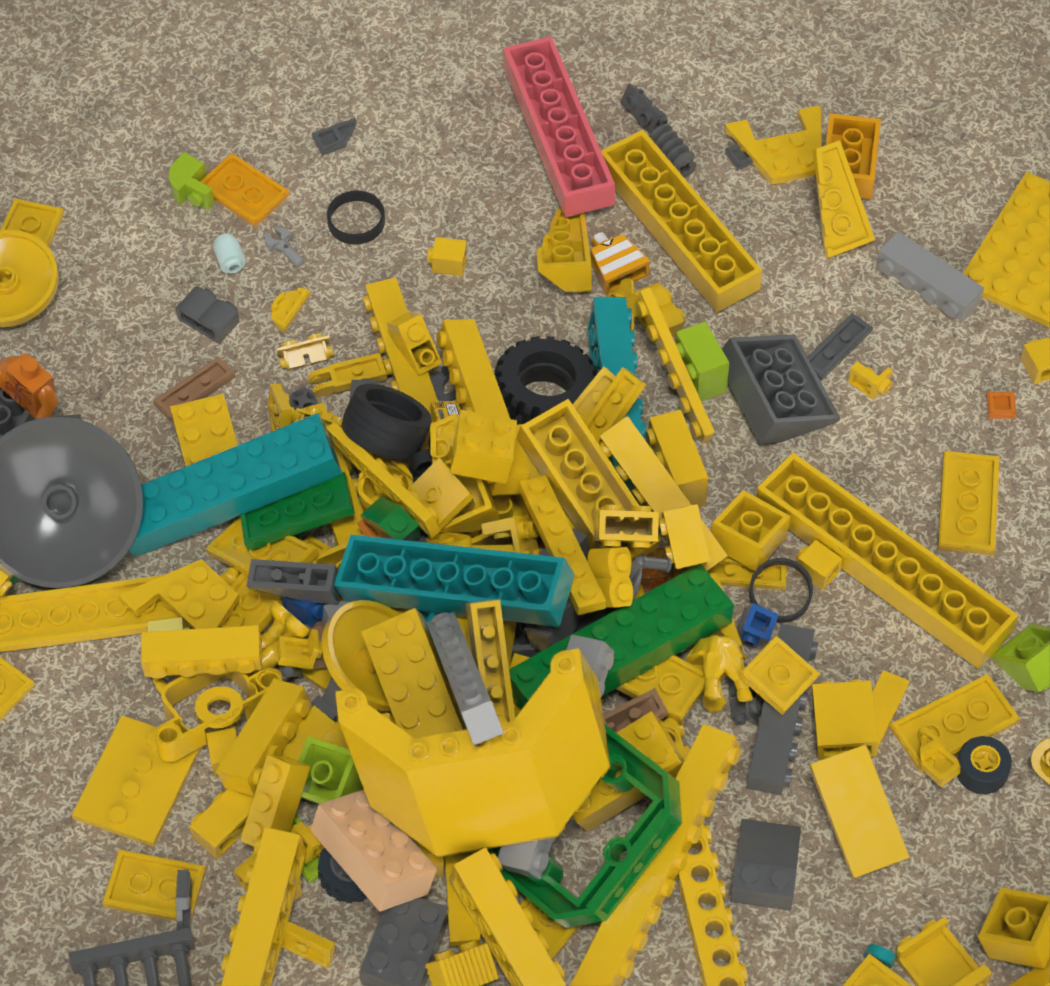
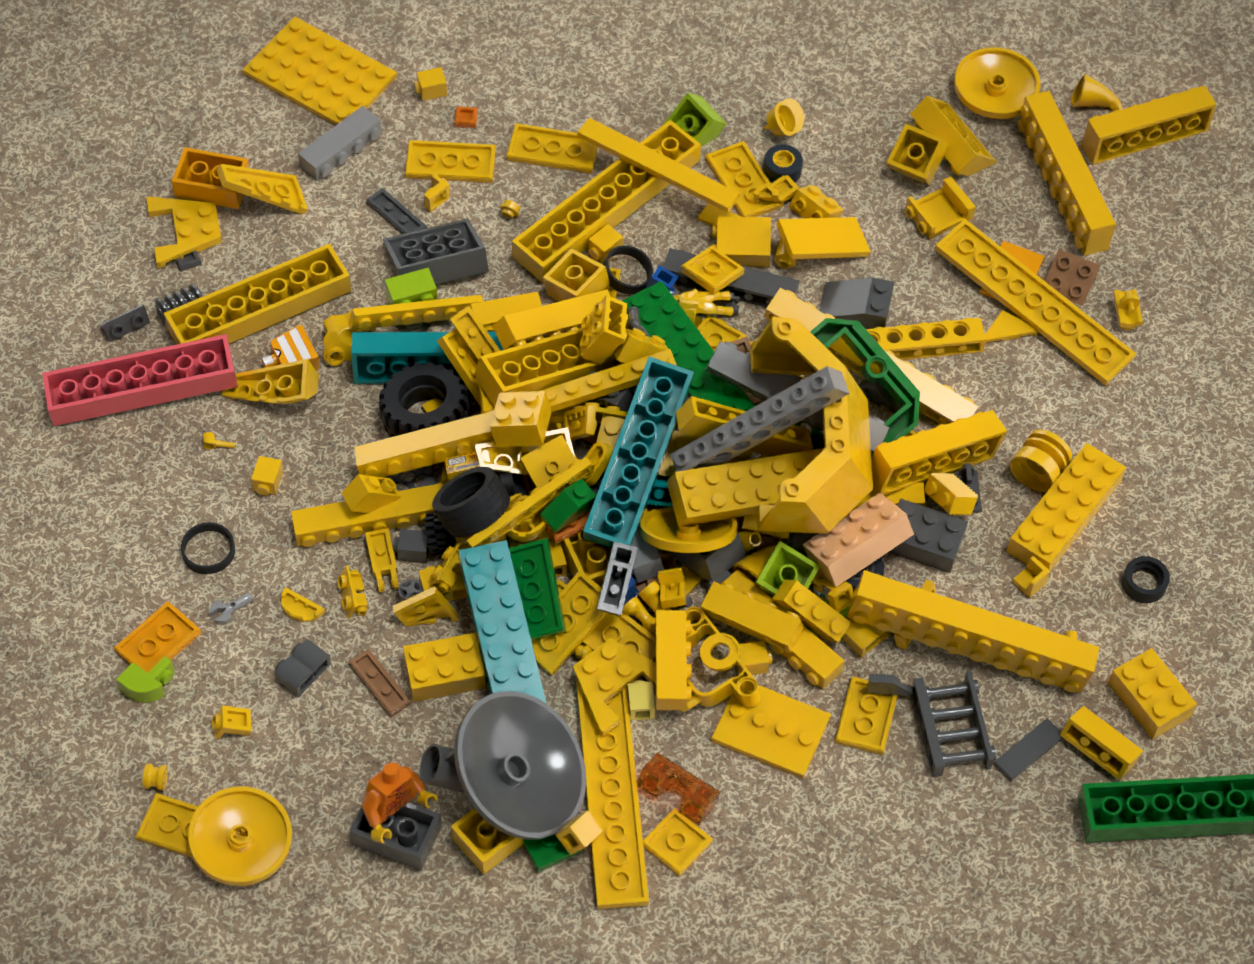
camera: 90 degrees left, 0 degrees up
(38, 700) = (663, 776): none -> clear orange arch
(79, 203) = (155, 776): none -> yellow wheel
(142, 261) = (232, 721): none -> yellow bracket
(229, 253) = (235, 649): light aqua brick -> none
(334, 137) = (109, 564): dark grey tile -> none
(494, 203) = (210, 442): none -> yellow hand
(685, 536) = (596, 289): yellow brick -> none
(860, 460) = (510, 209): none -> yellow plate
(881, 954) = (930, 245): teal tile -> none
(924, 809) = (812, 203): none -> yellow bracket
(928, 395) = (450, 161): none -> yellow tile
(934, 603) = (658, 165): none -> yellow tile

